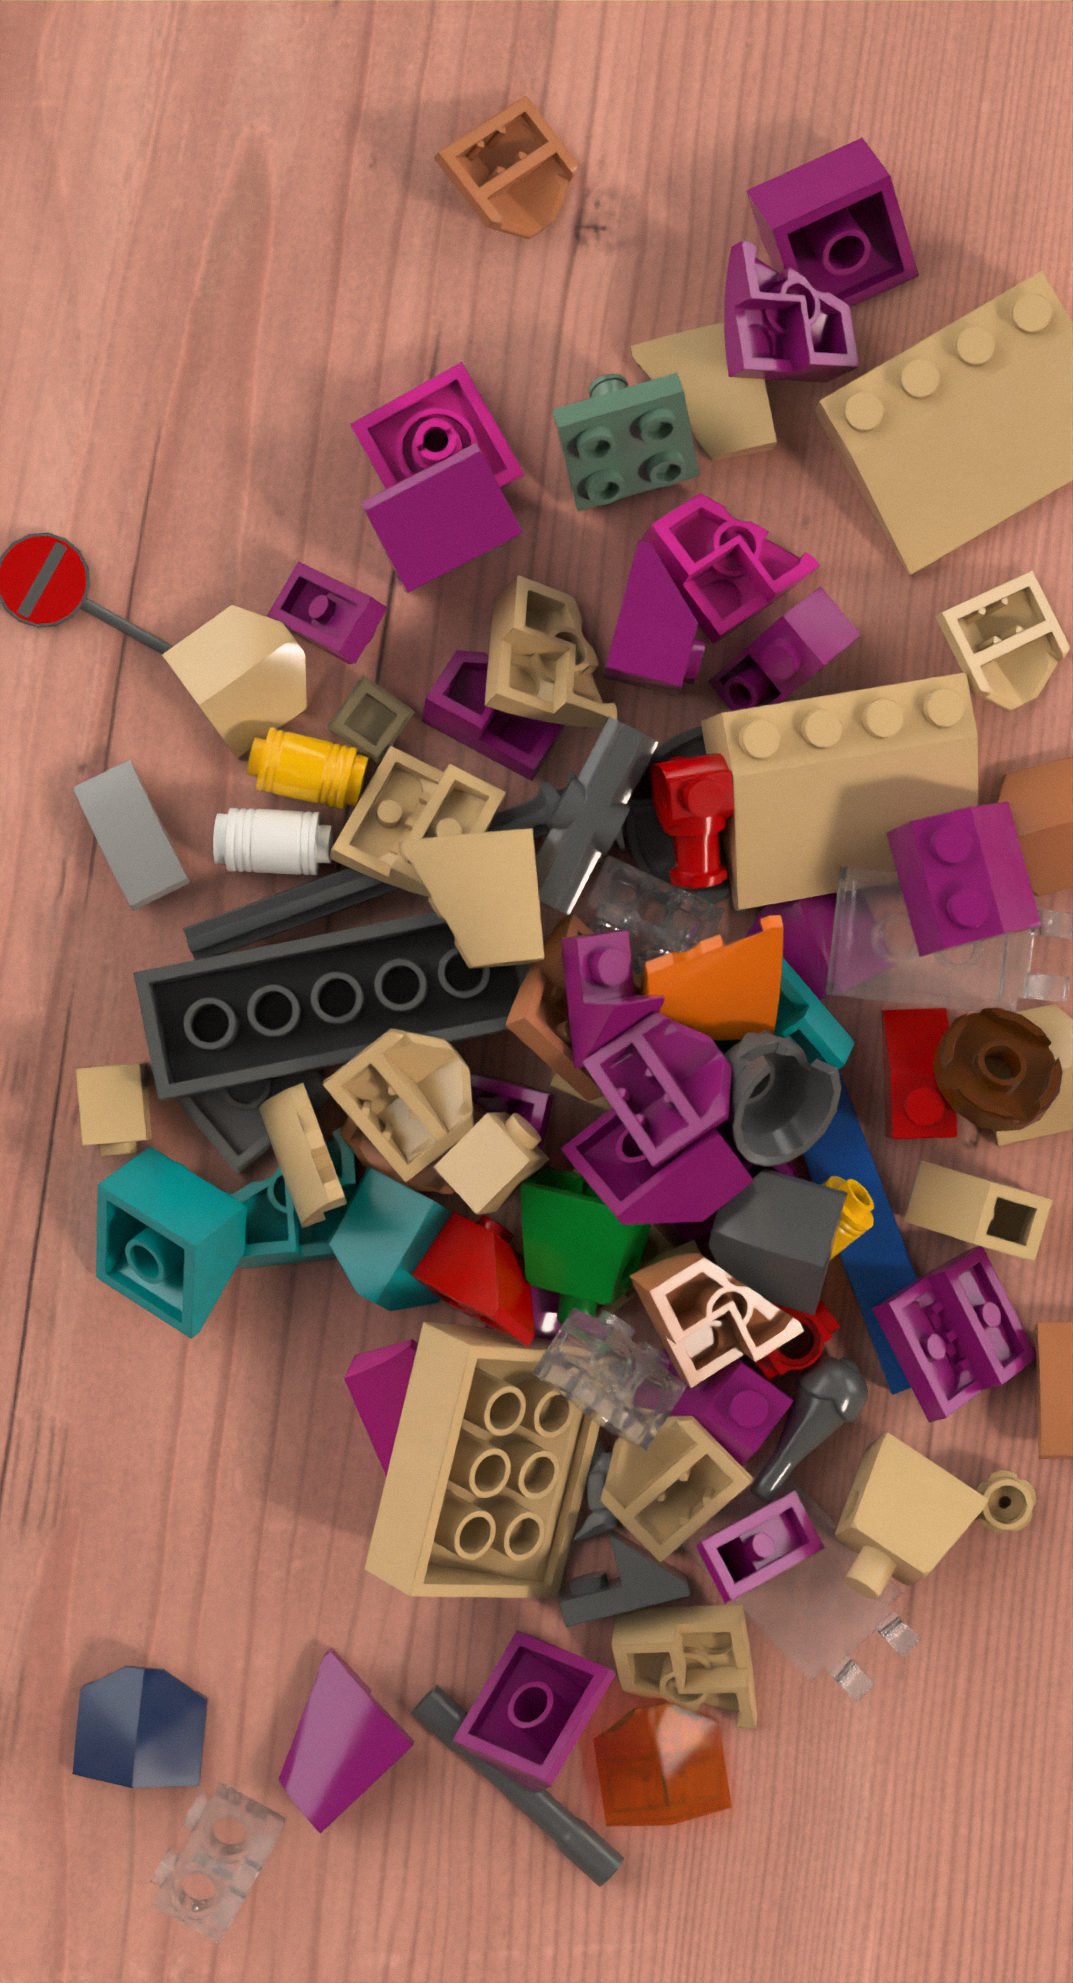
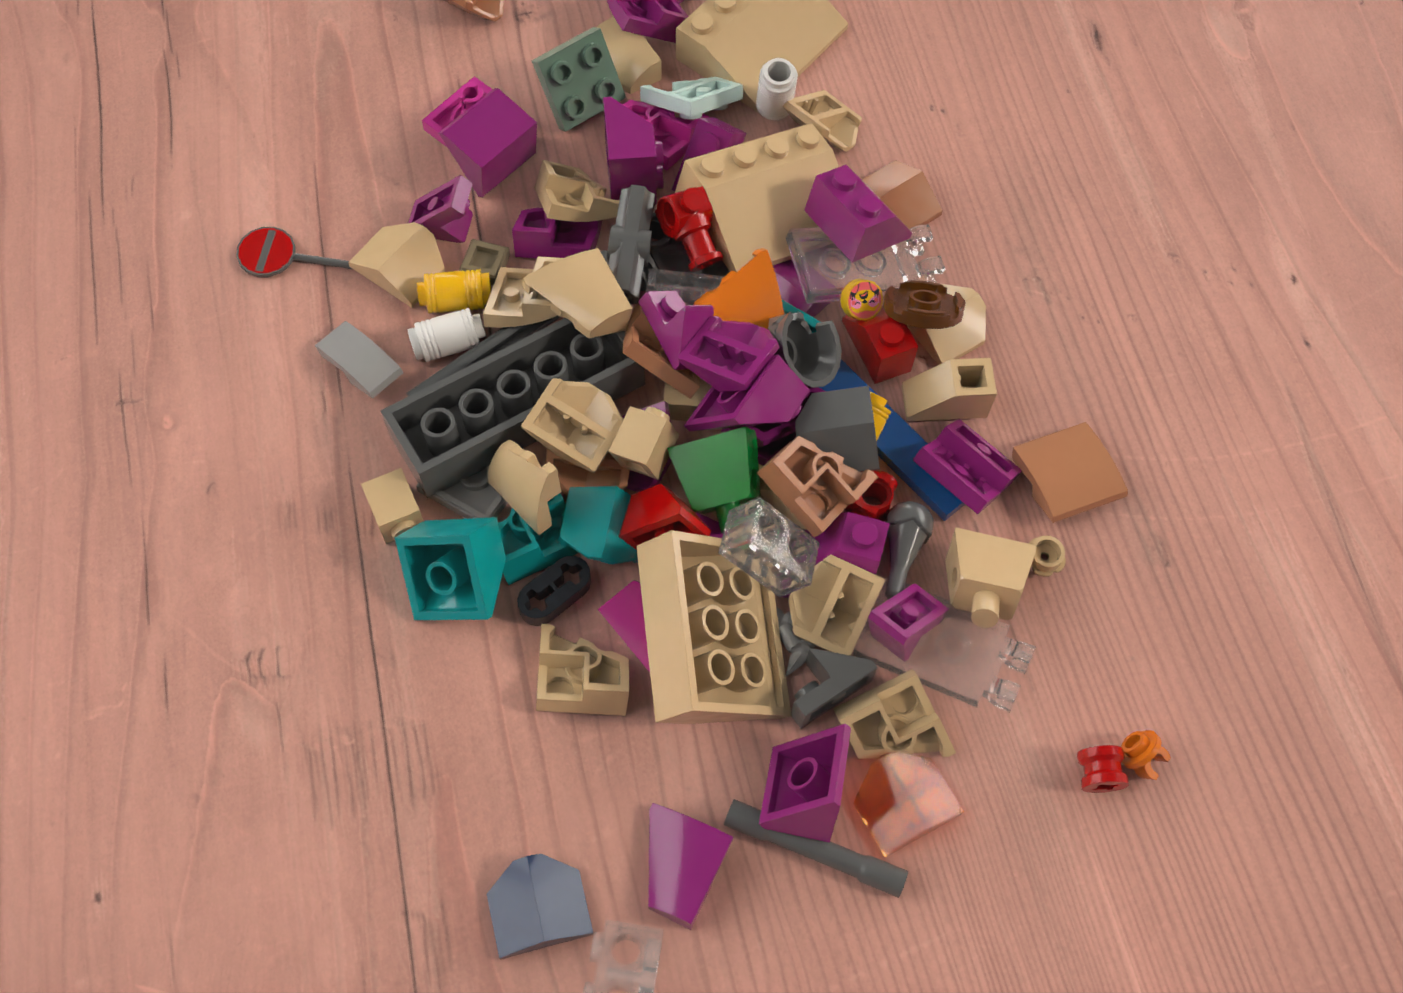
camera: 20 degrees left, 25 degrees down
(292, 1442) = (580, 677): none -> tan slope
(306, 1320) = (548, 583): none -> black beam
(805, 528) = (694, 96): none -> light aqua wing
(909, 1022) = (861, 299): none -> tile
(935, 1827) = (1102, 769): none -> red wheel
(947, 600) = (775, 88): none -> white head
(1000, 1820) = (1140, 749): none -> orange plate

